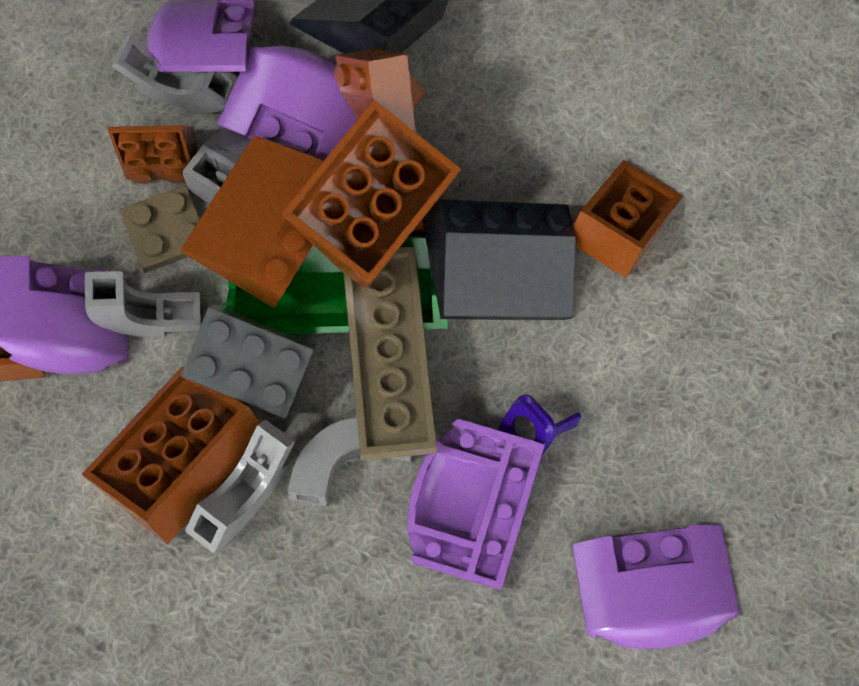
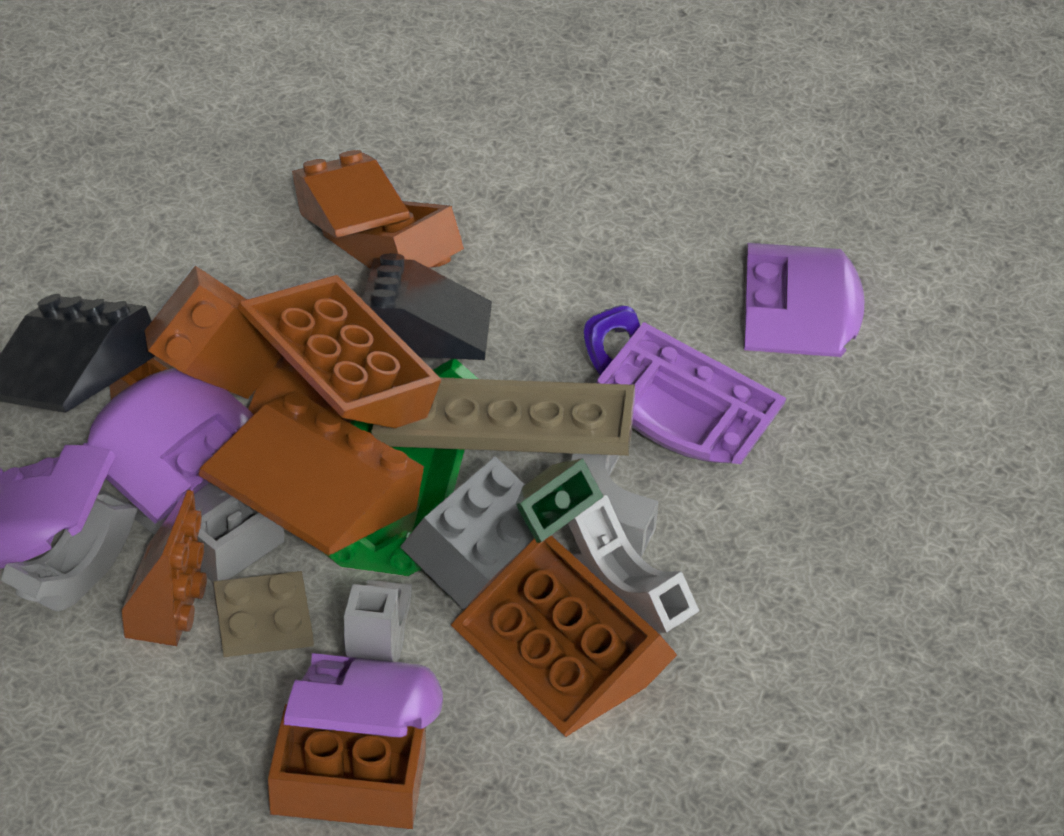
camera: 80 degrees left, 25 degrees down
(257, 403) = (557, 497): none -> dark green slope
(645, 166) = (347, 194): none -> dark orange slope

